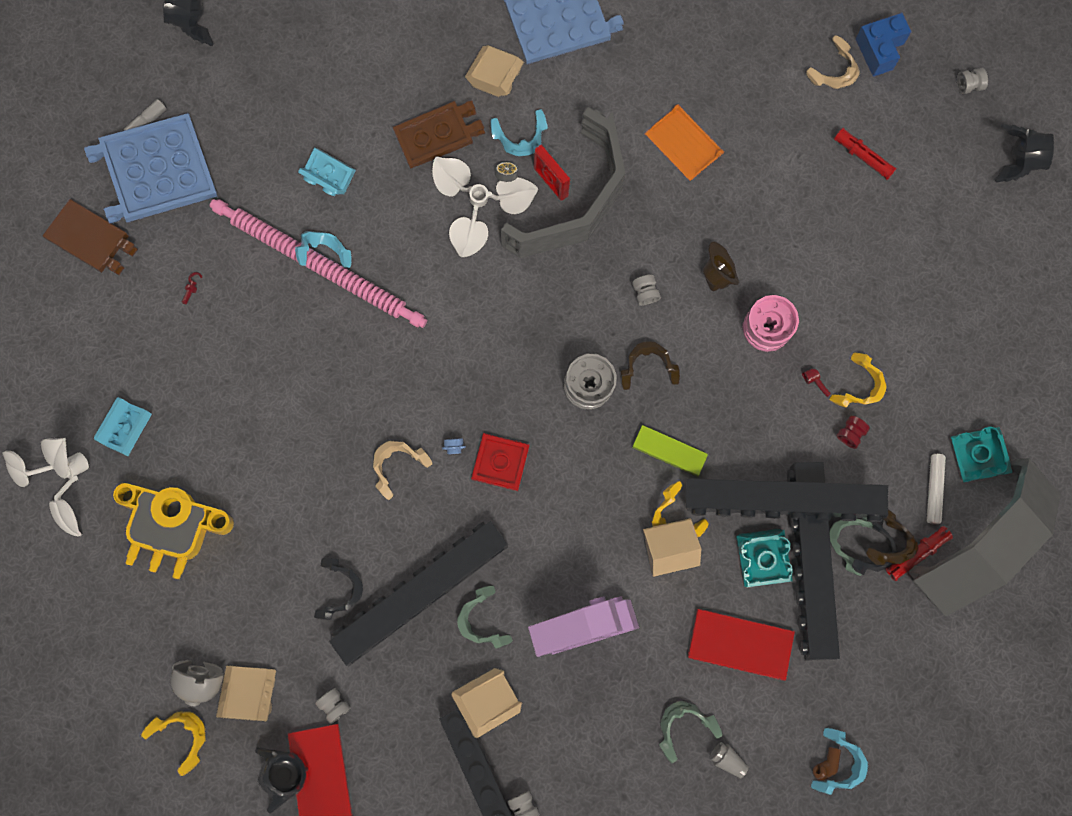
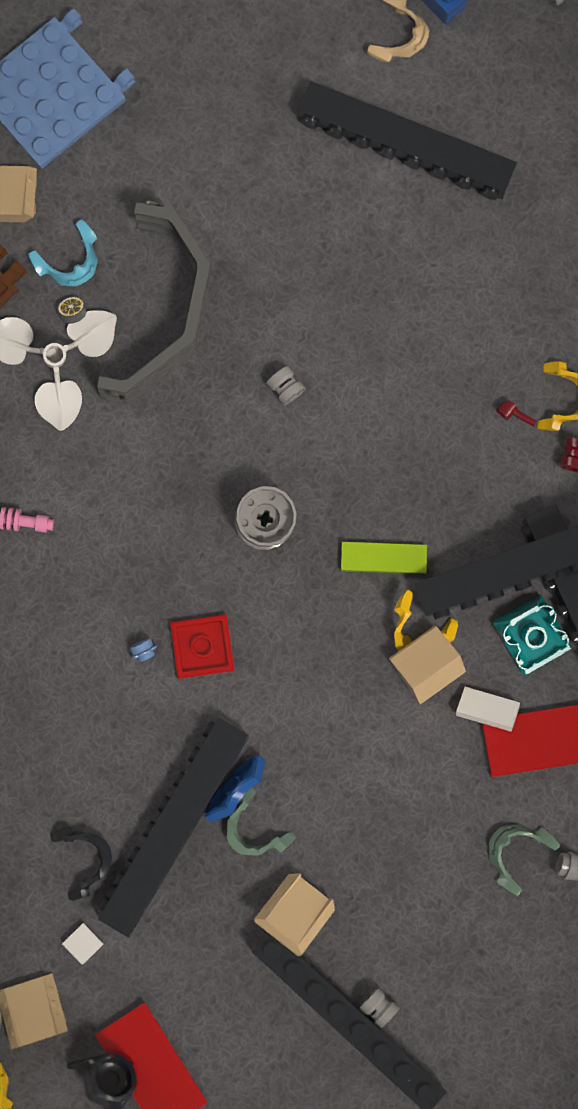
camera: 20 degrees left, 5 degrees up
(309, 656) = (82, 943): none -> white tile
(332, 705) = (131, 985): light grey wheel -> none
(385, 451) = (70, 687): tan helmet -> none
(489, 578) = (227, 798): none -> blue tile
(551, 173) = (125, 293): red tile -> none
(584, 626) = (368, 790): lavender wedge -> none
(647, 348) = (312, 453): dark brown helmet -> none
(684, 142) = (260, 192): orange piece -> none
(706, 602) = (488, 709): none -> white tile
(720, 268) = (359, 326): dark brown piece -> none
(774, 311) = (438, 354): bright pink wheel -> none
(811, 147) = (406, 140): none -> black brick
(865, 153) = (470, 124): red pin -> none

